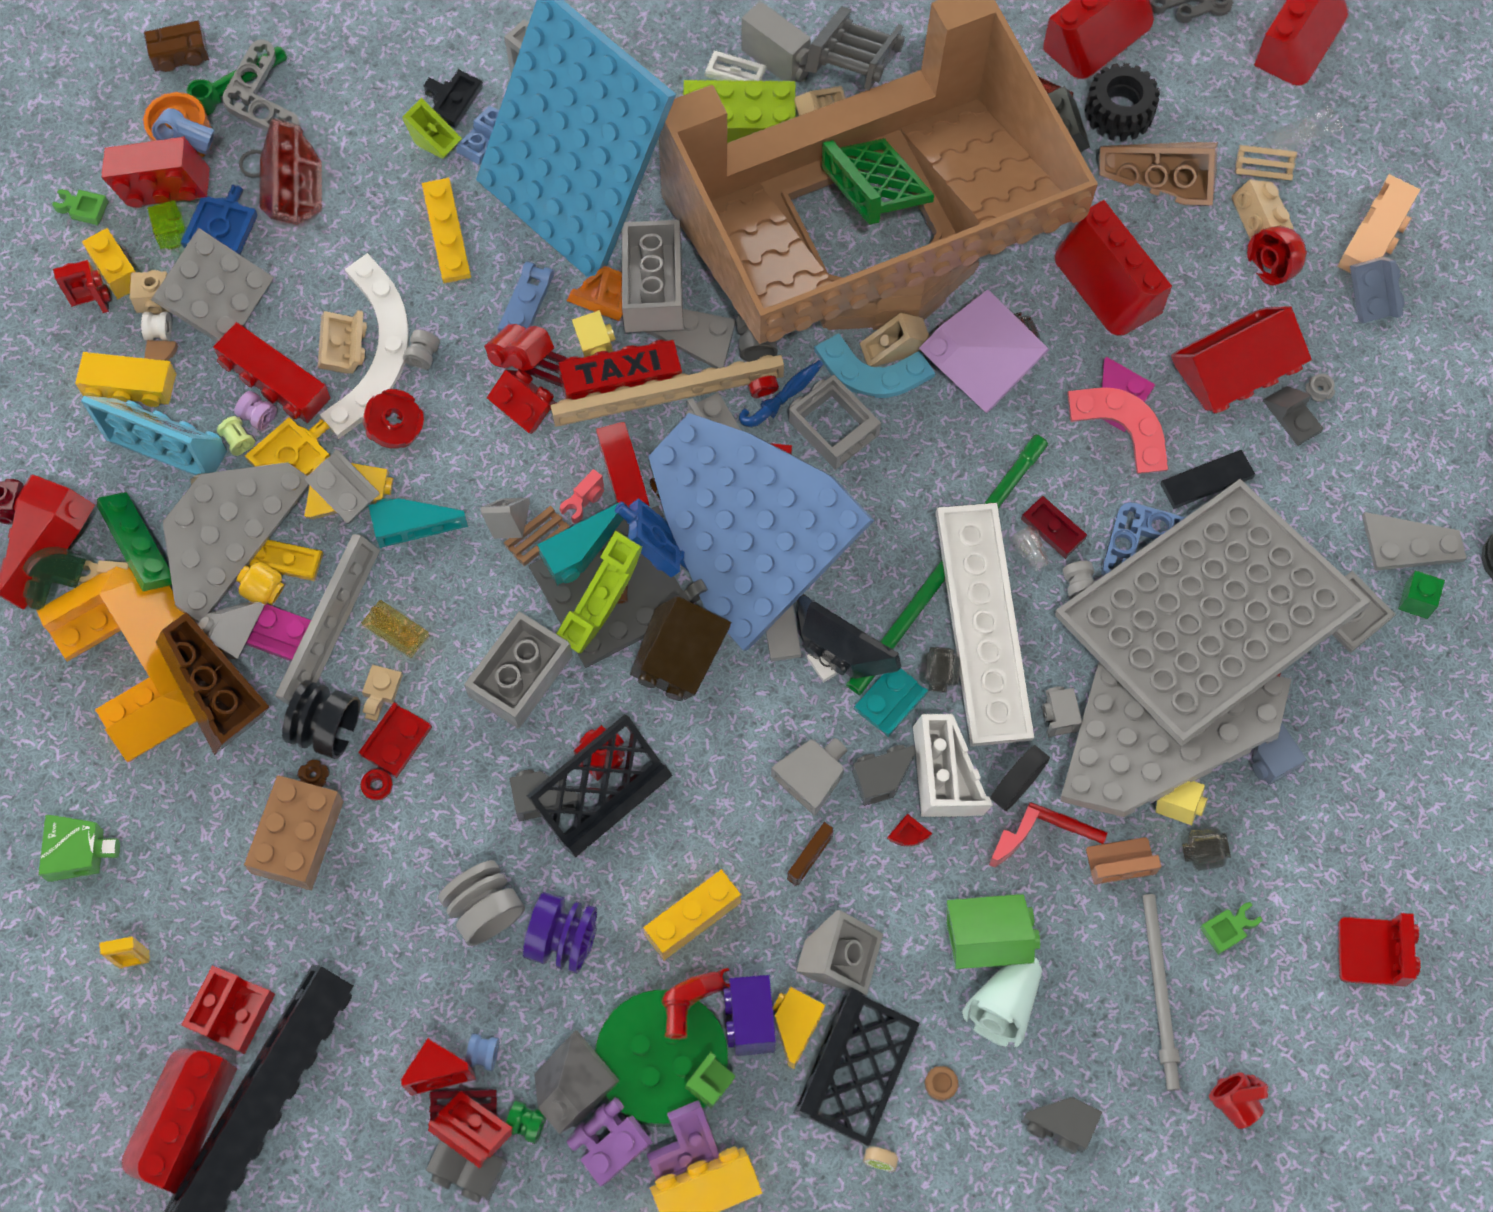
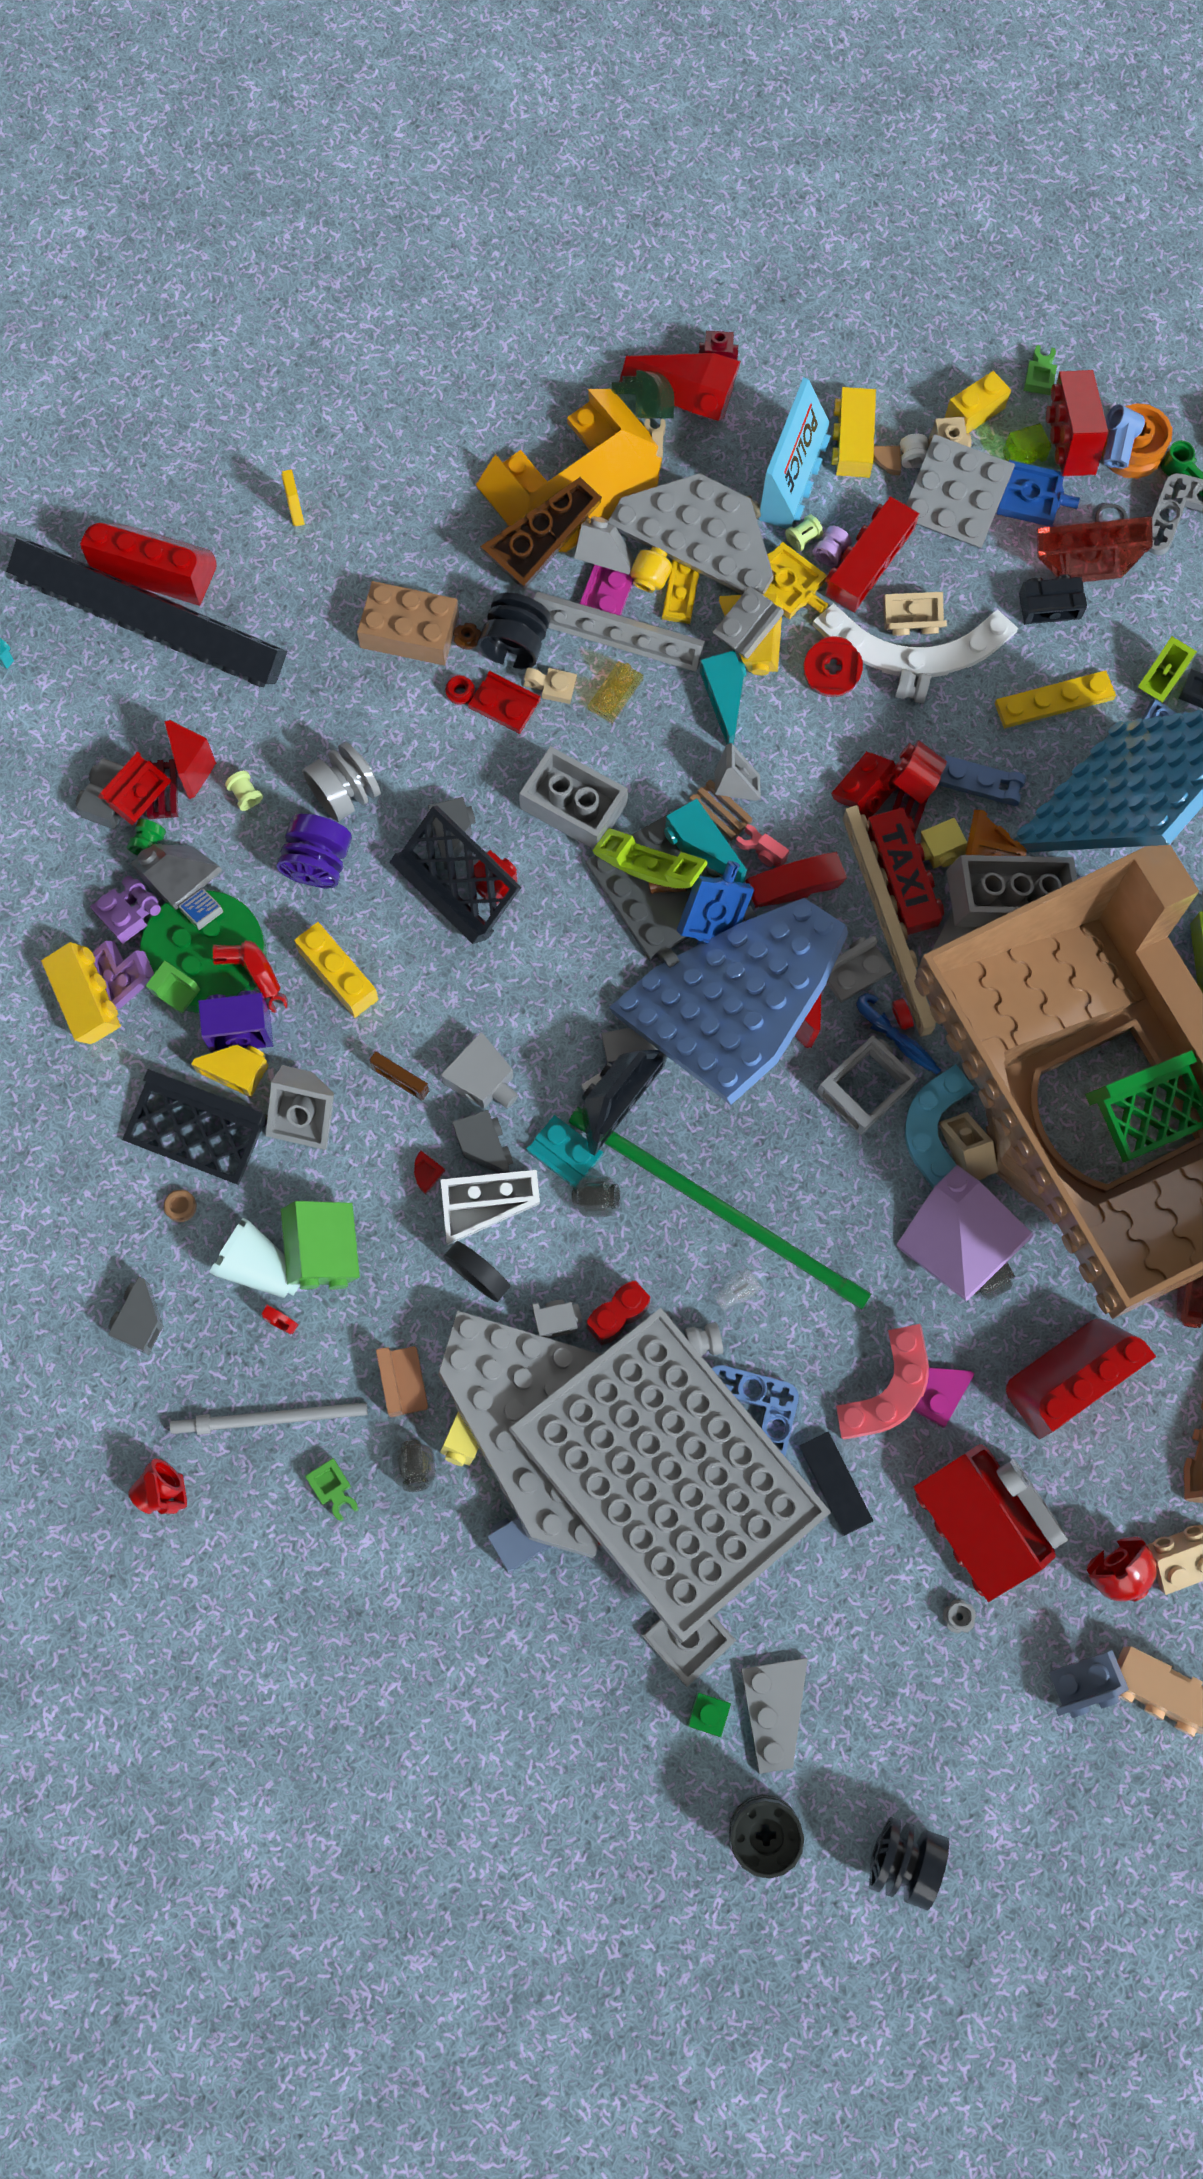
camera: 85 degrees right, 5 degrees up
(73, 848) = (391, 450): bright green torso -> none
(82, 284) = (947, 378): red bracket -> none
(134, 541) = (686, 458): green plate -> none
(213, 1011) = (242, 583): red slope -> none
(340, 219) = (1052, 599): none -> black brick
(475, 1014) = (243, 790): none -> yellowish green bush
(482, 1051) = (209, 798): medium blue wheel -> none
(620, 1053) = (200, 909): none -> tile
(679, 648) = (597, 938): dark brown slope -> none
(881, 1159) = (107, 1149): tan tile -> none
(984, 625) = (647, 1238): white plate -> none
(1011, 842) = (414, 1264): coral slope -> none
(1050, 648) = (626, 1307): none -> red brick
(1054, 527) = (764, 1314): dark red plate -> none
(1063, 980) = (279, 1320): none -> red tile
(1069, 824) = (440, 1327): red piece -> none
(1220, 318) = (1019, 1484): none -> light grey beam
(1292, 413) = (923, 1583): dark grey slope -> none
(1379, 950) = (309, 1640): red bracket -> none

